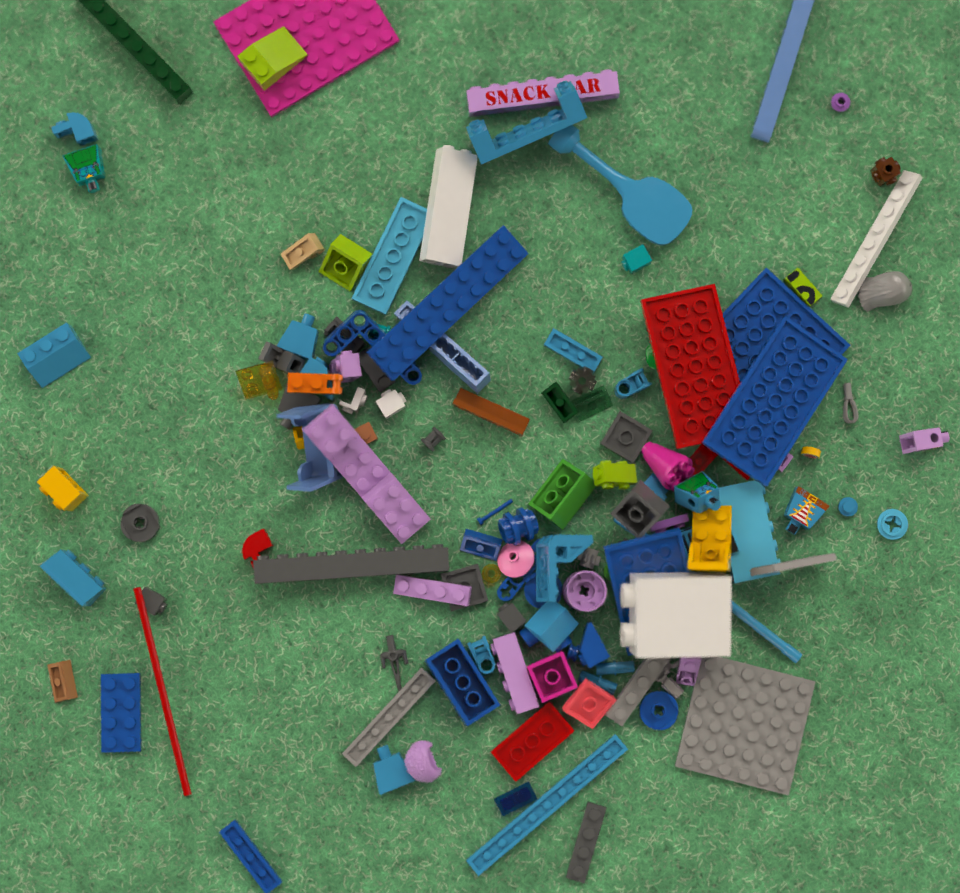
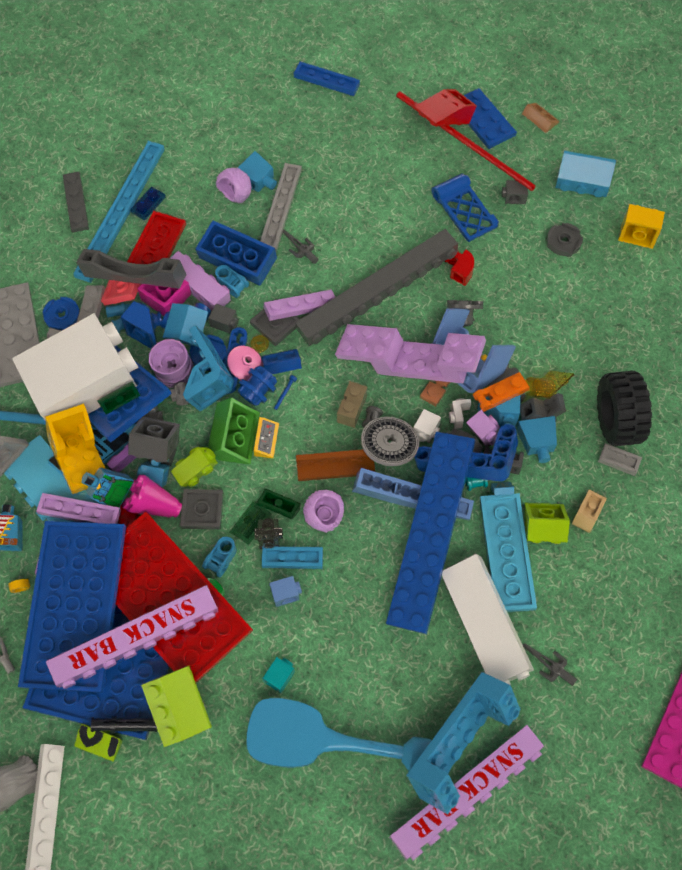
camera: 150 degrees right, 20 degrees down
(158, 734) = (446, 108): none -> red slope
(207, 639) = (451, 191): none -> blue piece
(217, 311) = (624, 408): none -> black tyre
(244, 281) = (620, 459): none -> light grey plate
(284, 499) = (466, 304): none -> dark grey plate
(359, 305) = (502, 488): none -> dark azure tile
(415, 144) = (556, 668): none -> dark grey piece
(438, 464) = (352, 404): none -> dark tan piece
(448, 405) = (399, 451): none -> piece
(526, 373) = (323, 510): none -> lavender hair
(536, 473) = (266, 438): none -> slope
(575, 705) = (102, 266): none -> dark grey arch
(595, 324) = (285, 591): none -> medium blue brick
(652, 565) = (118, 397): none -> dark green slope
(731, 274) = (176, 706): none -> lime slope
(733, 485) = (77, 510): none -> lavender plate
(740, 340) = (131, 637): none -> lavender brick
(797, 295) = (123, 724): none -> black pin

